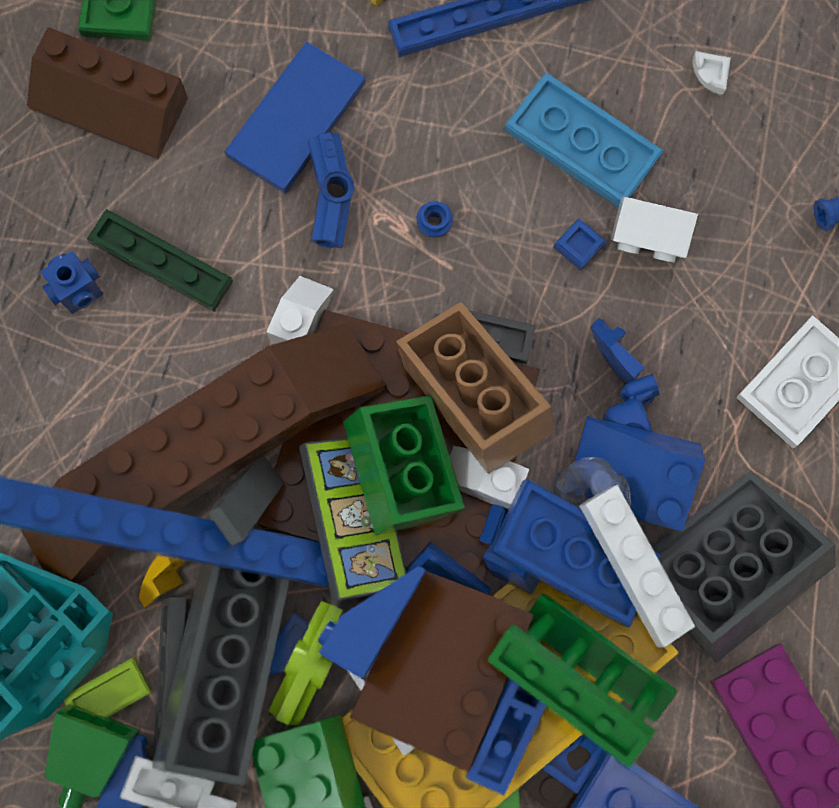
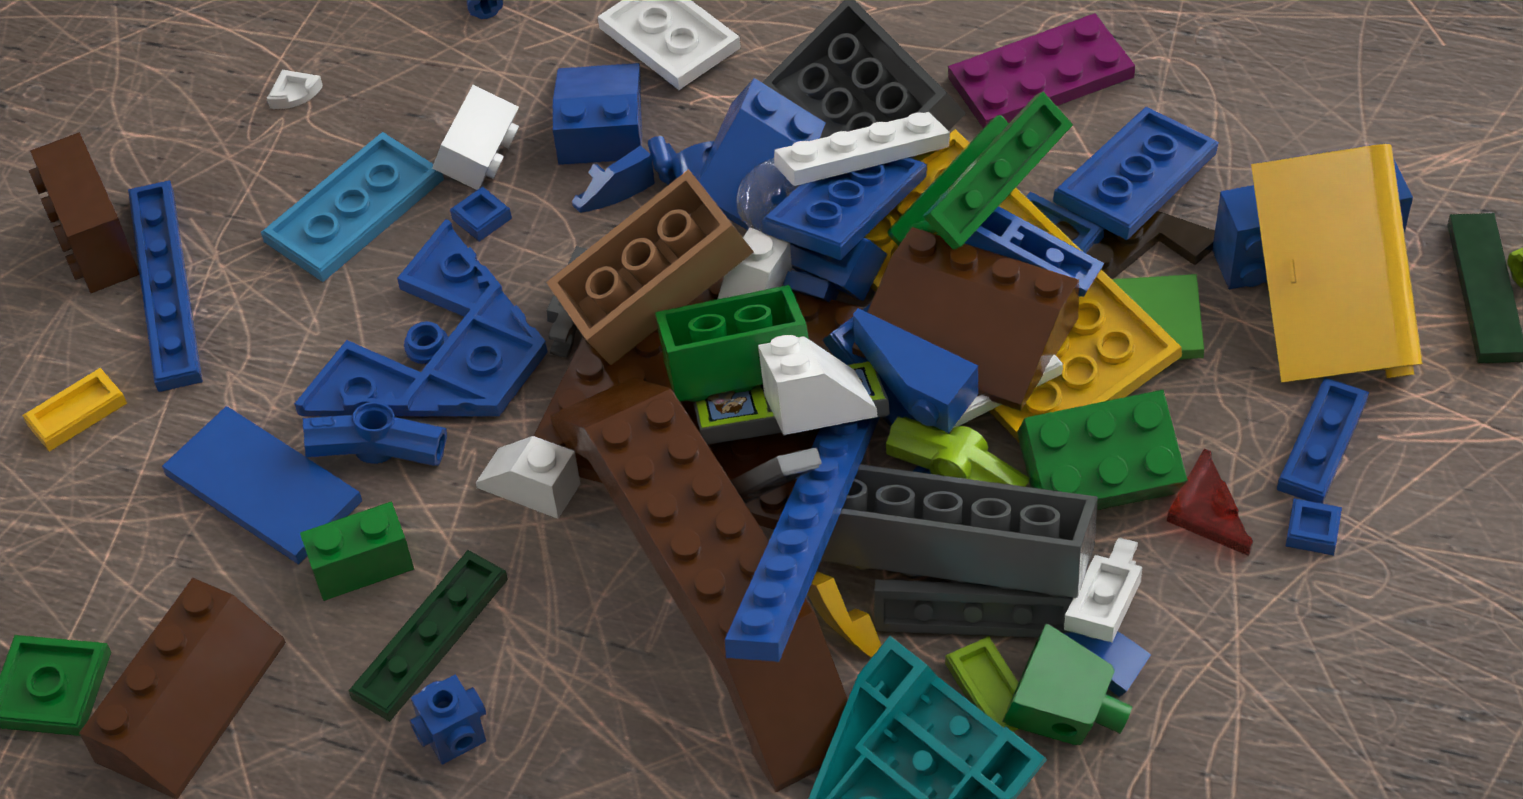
camera: 80 degrees left, 25 degrees down
(222, 194) = (357, 551): none -> green brick
(339, 536) = (810, 386): none -> white slope
(420, 265) = (470, 373): none -> blue wing
(703, 327) = (597, 113): none -> blue slope

